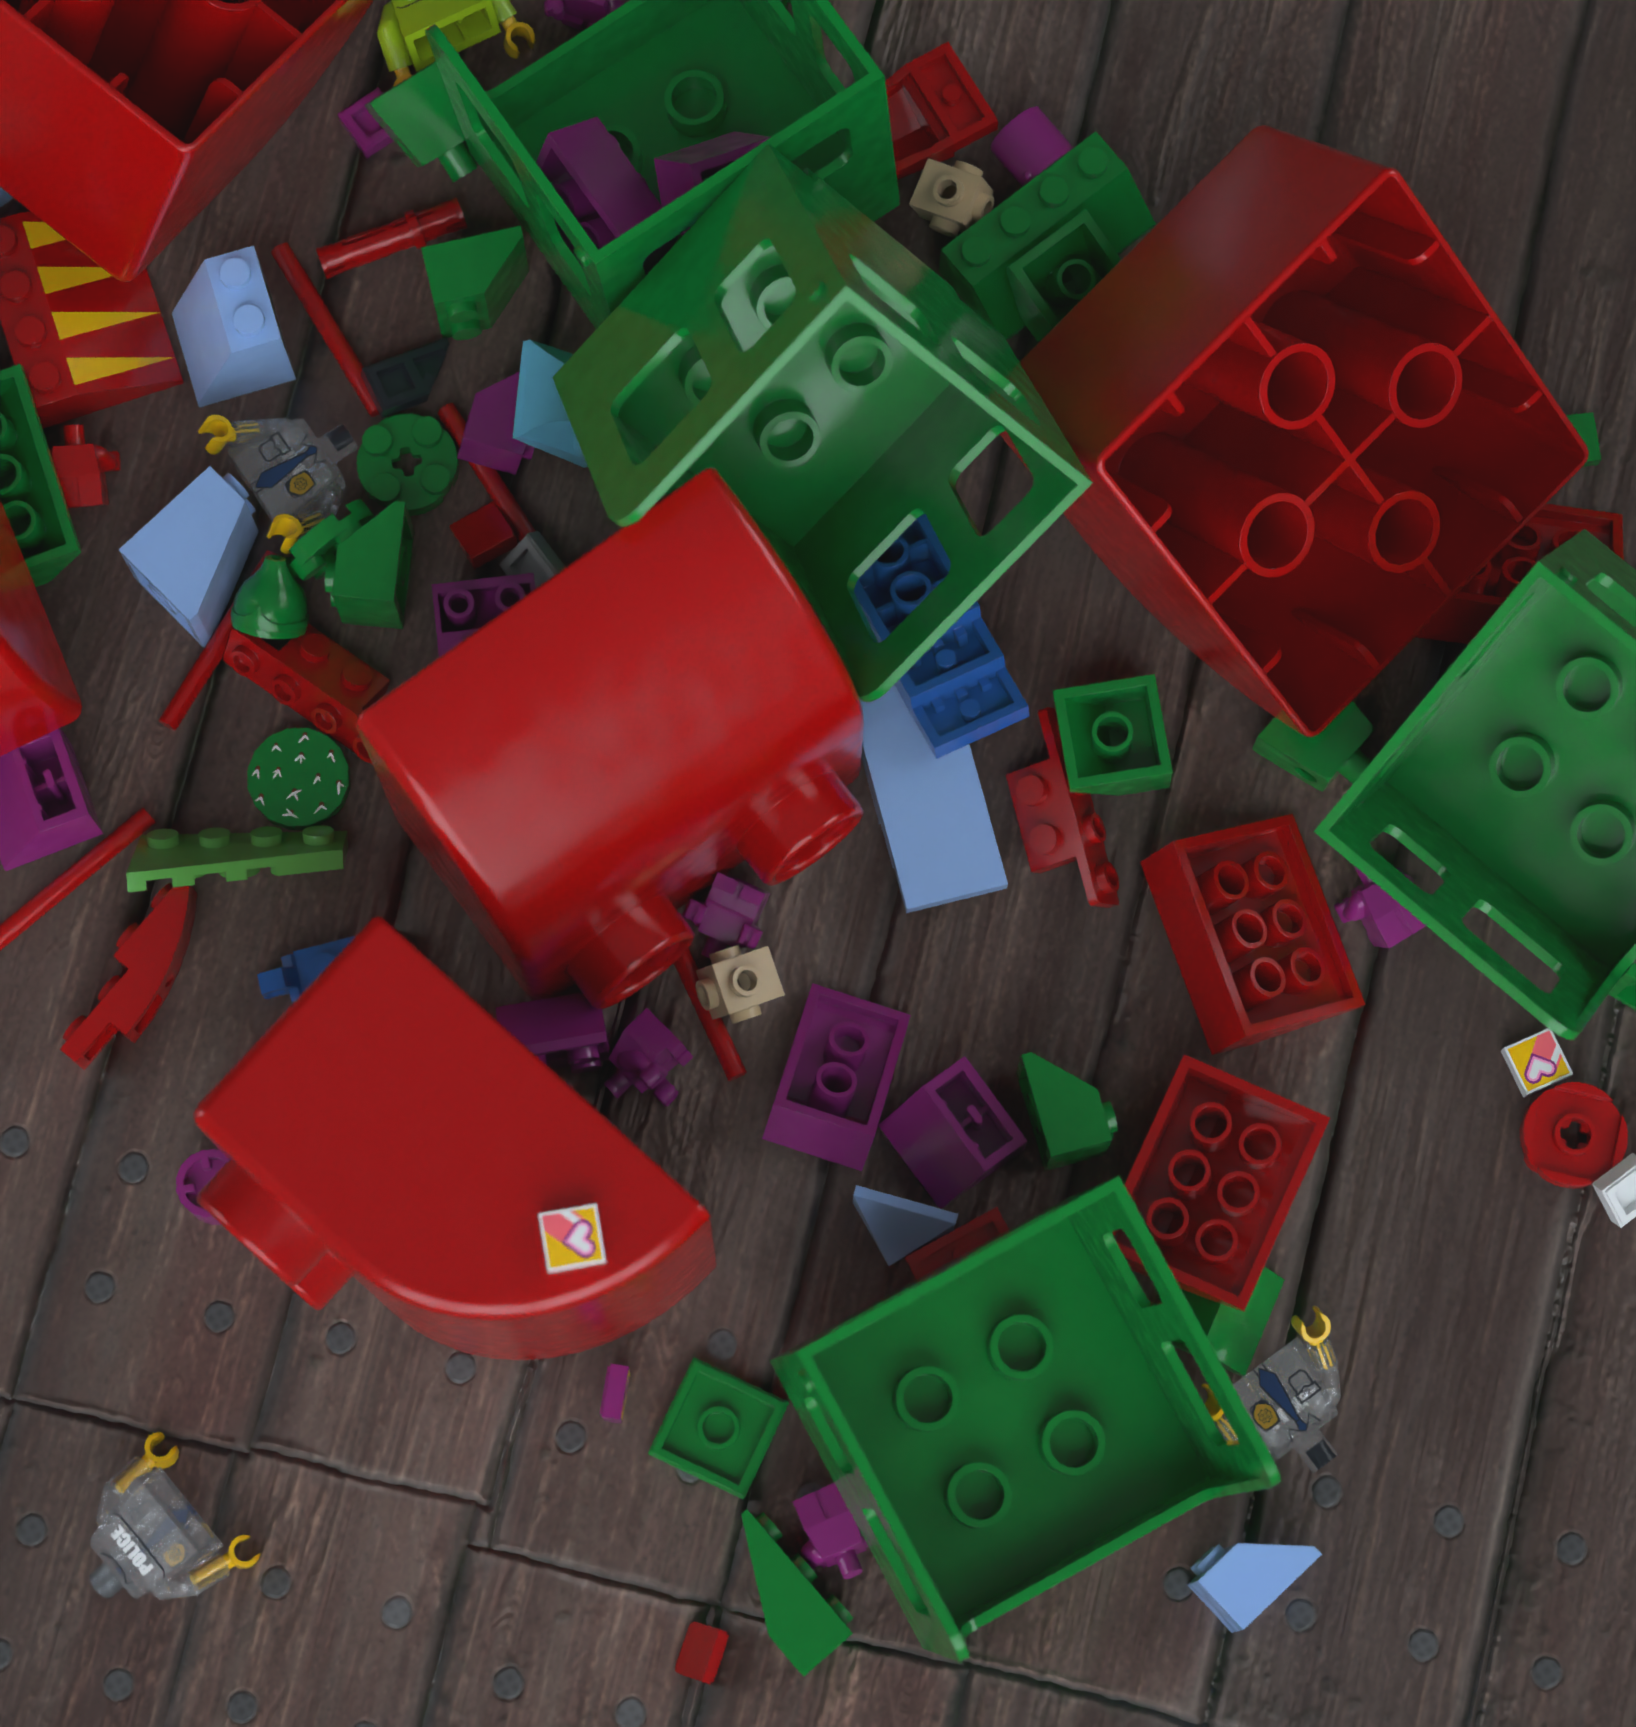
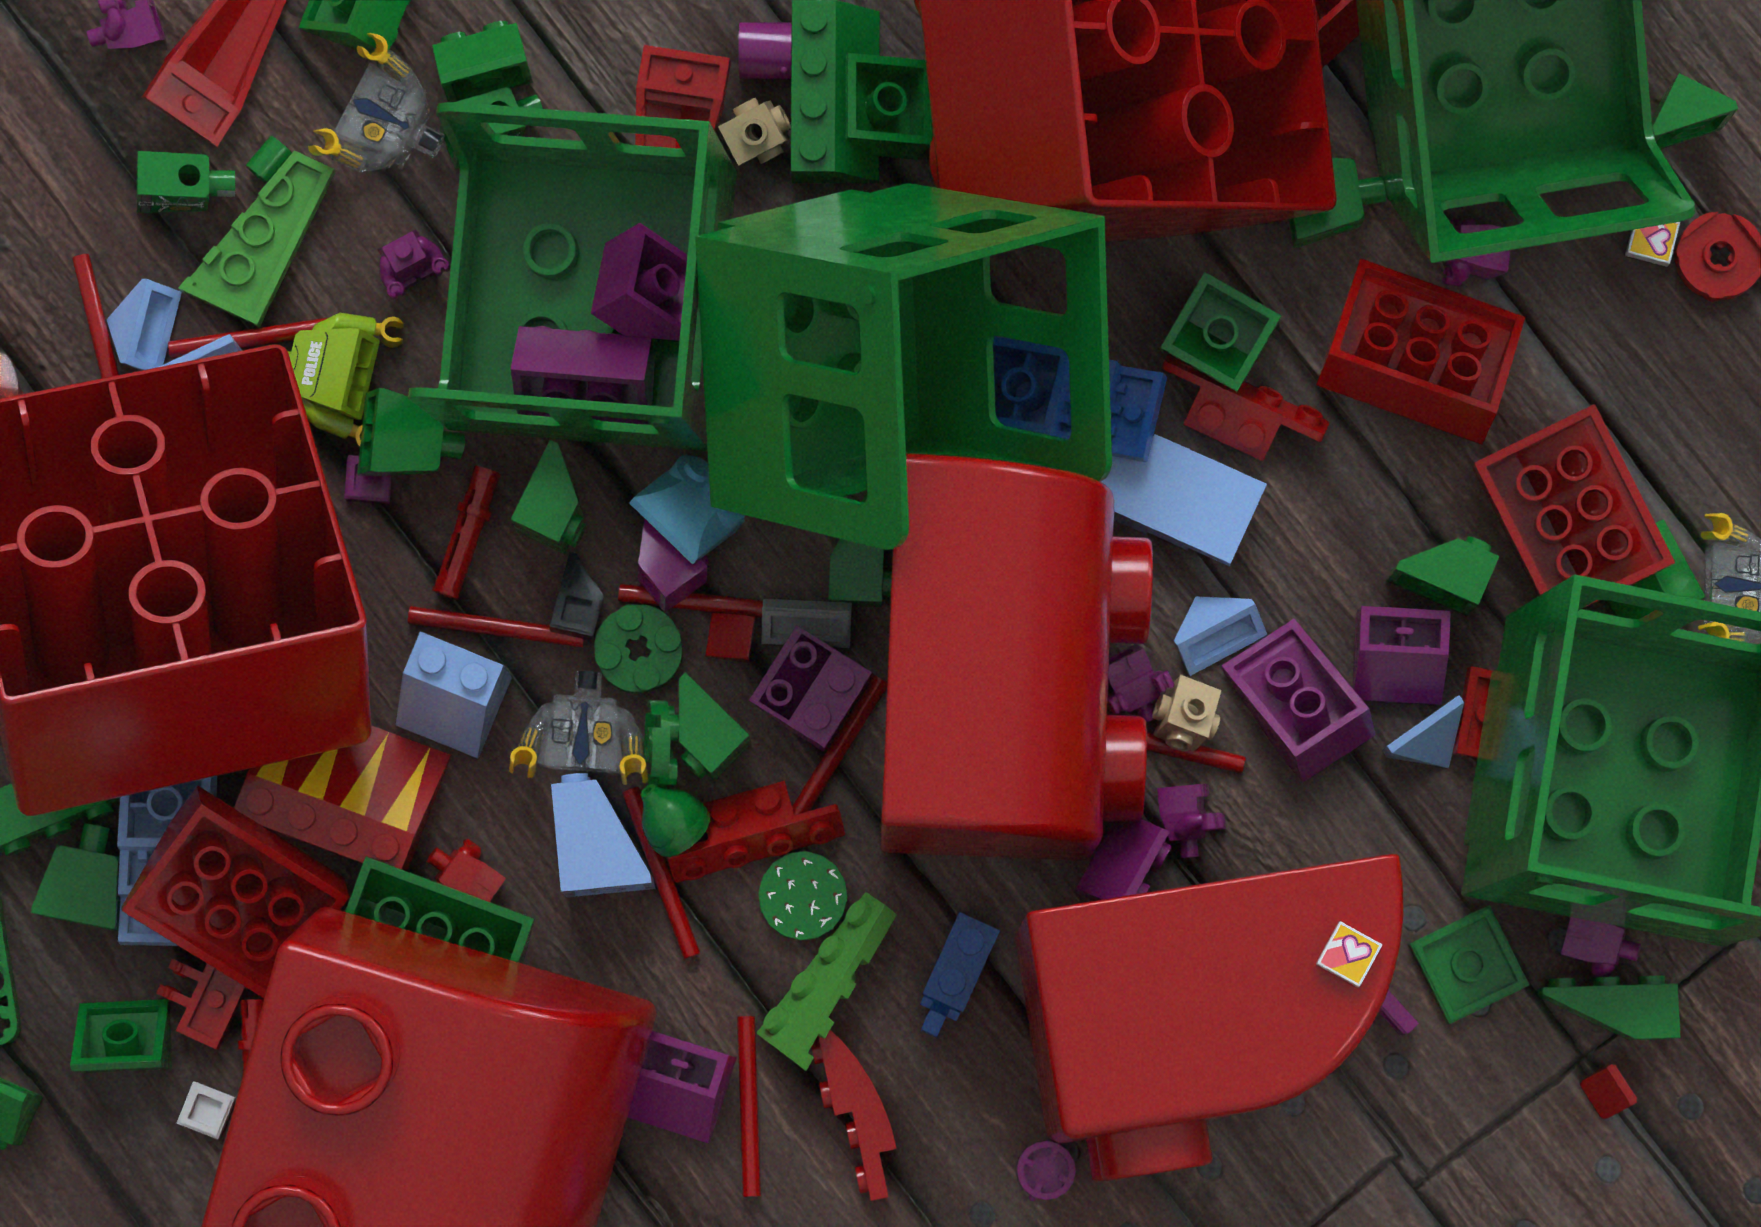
camera: 50 degrees left, 5 degrees up
(840, 953) = (1216, 630): none -> light blue slope

